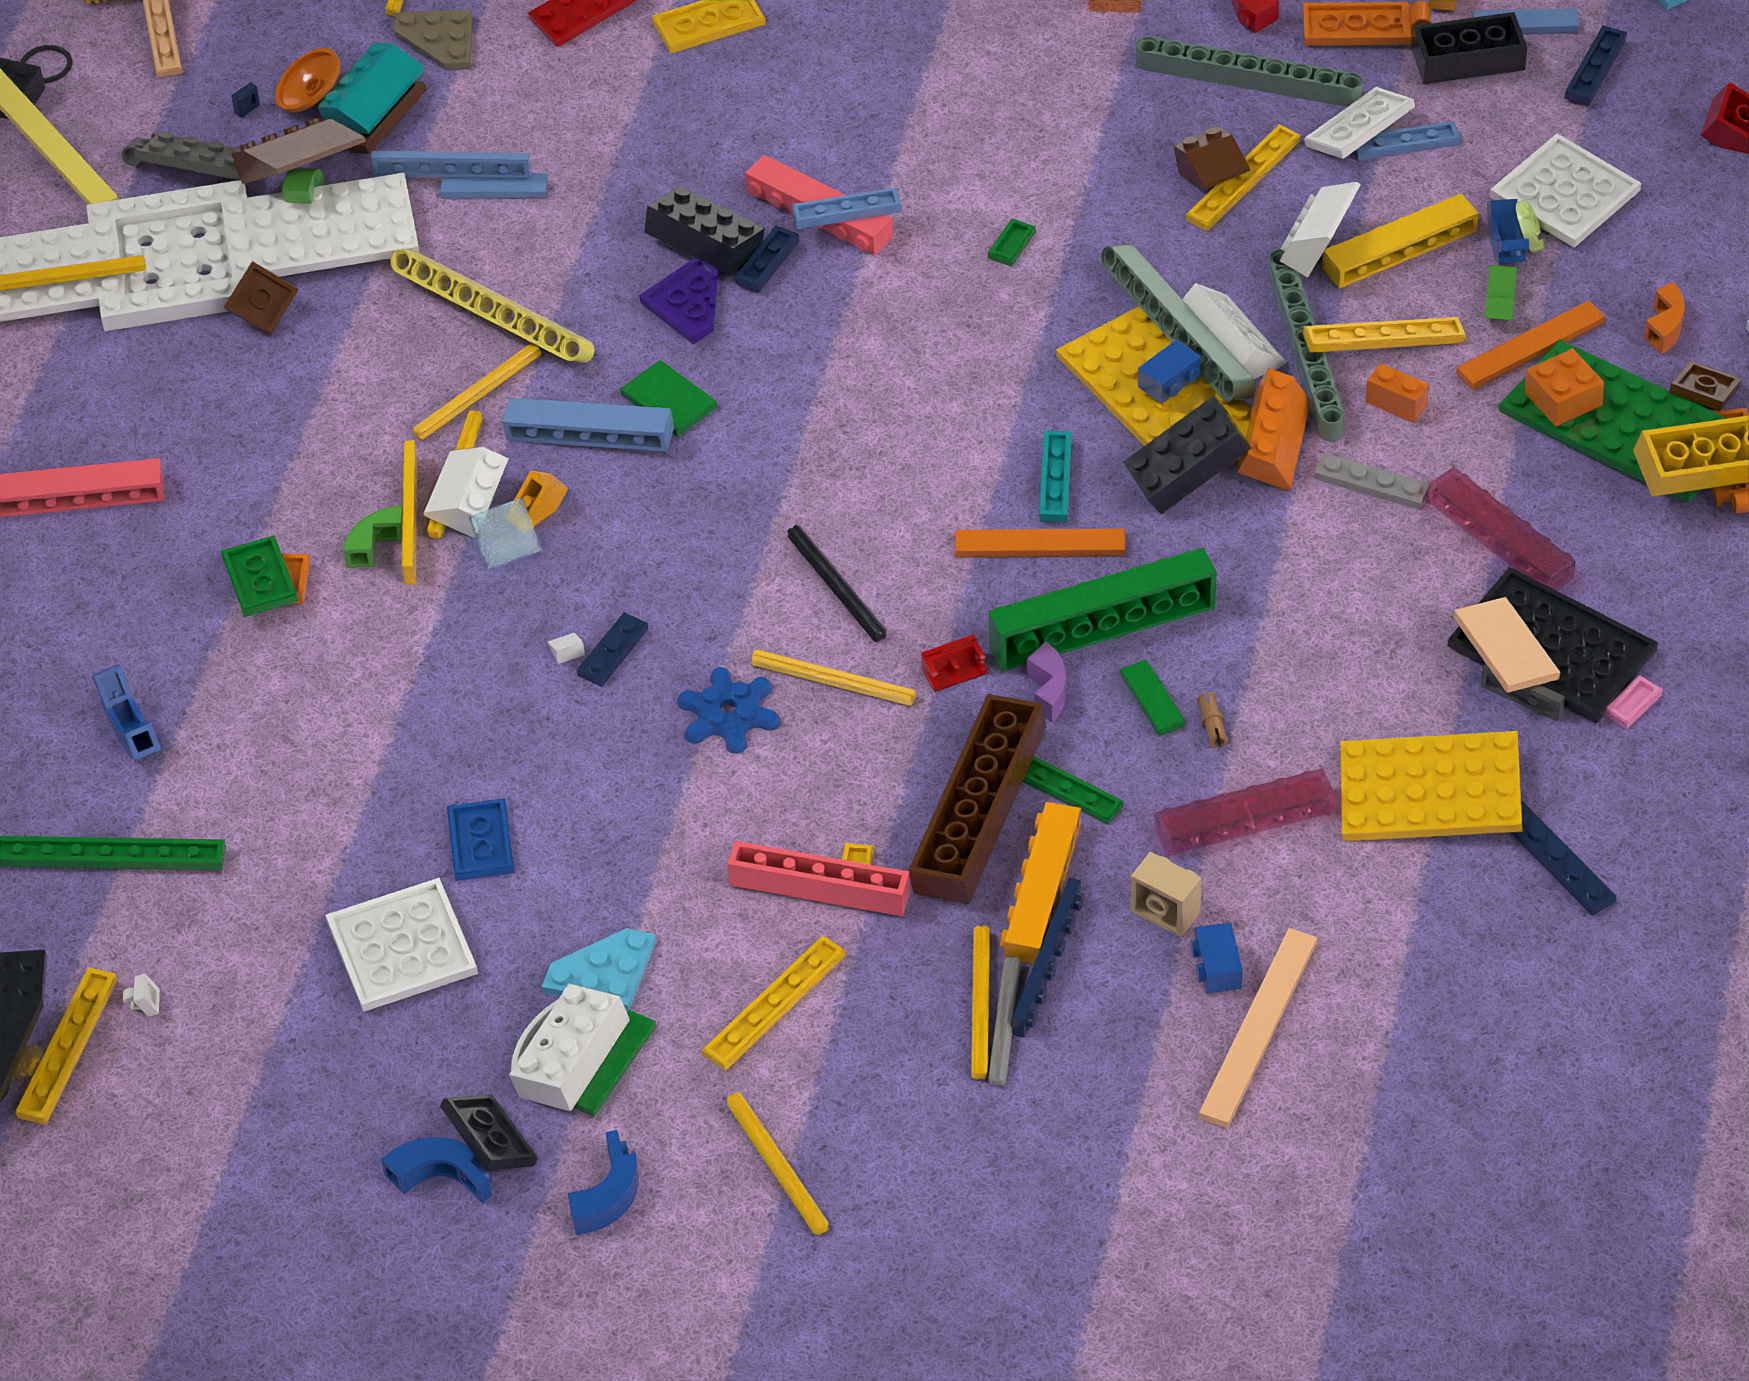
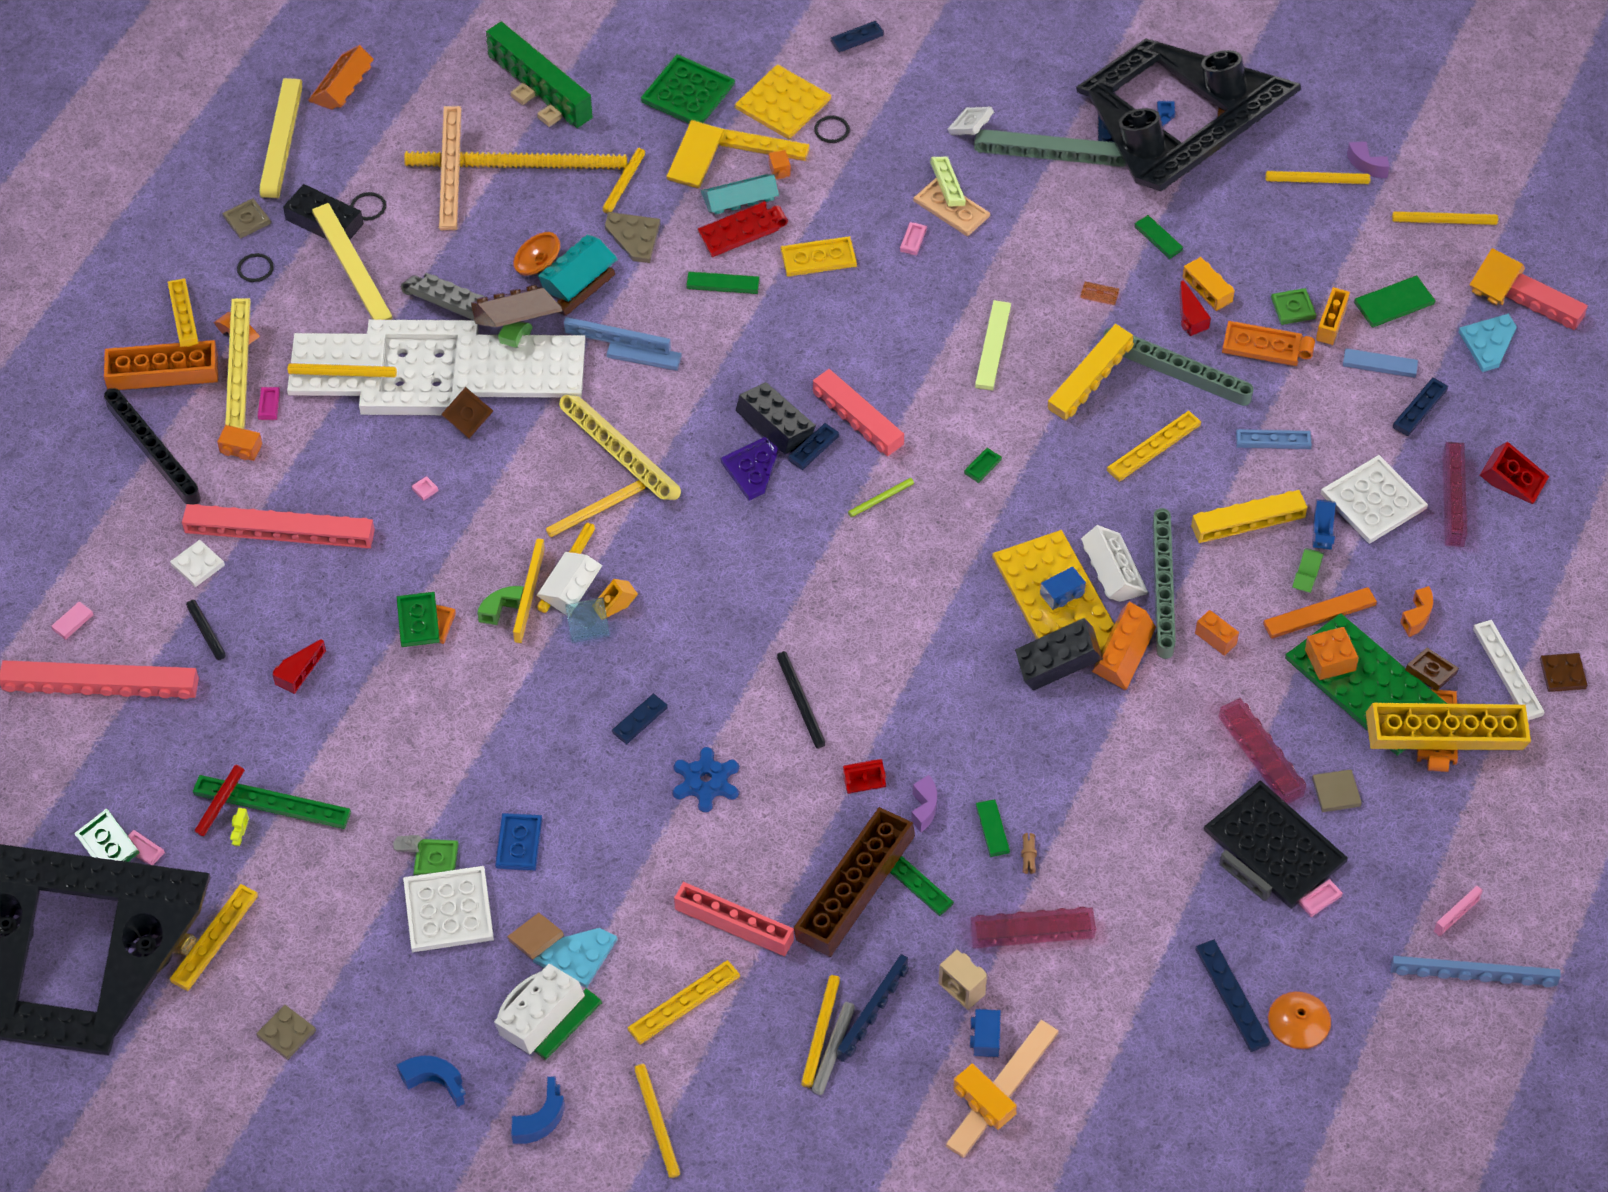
camera: 10 degrees right, 5 degrees up
(29, 863) = (219, 800): none -> red axle
(66, 889) = (239, 823): none -> neon yellow plate
(111, 652) = (297, 667): none -> red slope
(124, 715) = (306, 704): blue arch -> none
(143, 996) = (272, 911): white tile -> none
(205, 1151) = (286, 1032): none -> dark tan plate
(223, 409) = (424, 488): none -> bright pink tile
(245, 100) = (493, 259): dark blue tile -> none
(319, 870) = (407, 843): none -> light grey piece
(363, 879) = (435, 856): none -> bright green tile
(488, 1132) = (471, 1059): black tile -> none
(538, 955) = (535, 936): none -> medium nougat tile
(567, 648) = (609, 711): white slope -> none
(582, 75) = (723, 282): none -> green tile
(588, 424) = (662, 549): medium blue brick -> none
(667, 388) = (722, 538): green tile -> none
(833, 677) = (781, 769): yellow axle -> none
(846, 208) = (874, 420): medium blue tile -> none
(858, 853) = (765, 906): yellow tile -> none
(879, 307) = (881, 497): none -> lime bar
(984, 90) = (993, 345): none -> yellowish green tile
(1040, 542) = (945, 696): orange tile -> none
(1042, 881) = (883, 951): light orange brick -> none
(1055, 476) = (968, 649): teal plate -> none
(1103, 608) = (974, 757): green brick -> none
(1132, 96) = (1090, 372): none -> yellow brick
(1178, 321) = (1079, 550): sand green beam -> none
(1210, 158) = (1133, 429): reddish brown slope -> none
(1238, 1038) = (984, 1097): none -> light orange brick
(1316, 226) = (1192, 497): white slope -> none
(1359, 122) = (1244, 420): white tile -> none
(1371, 481) = (1183, 695): light grey plate -> none
(1384, 334) = (1219, 586): yellow tile -> none
(1430, 786) = (1164, 934): yellow plate -> none
(1469, 47) = (1334, 377): black brick -> none
(1506, 644) = (1241, 840): light nougat tile -> none
(1529, 225) = (1340, 523): yellowish green tile -> none
(1617, 563) = (1336, 790): none -> dark tan tile
(1647, 872) = (1295, 1029): none -> orange dish
(1674, 164) = (1454, 494): none -> clear pink brick

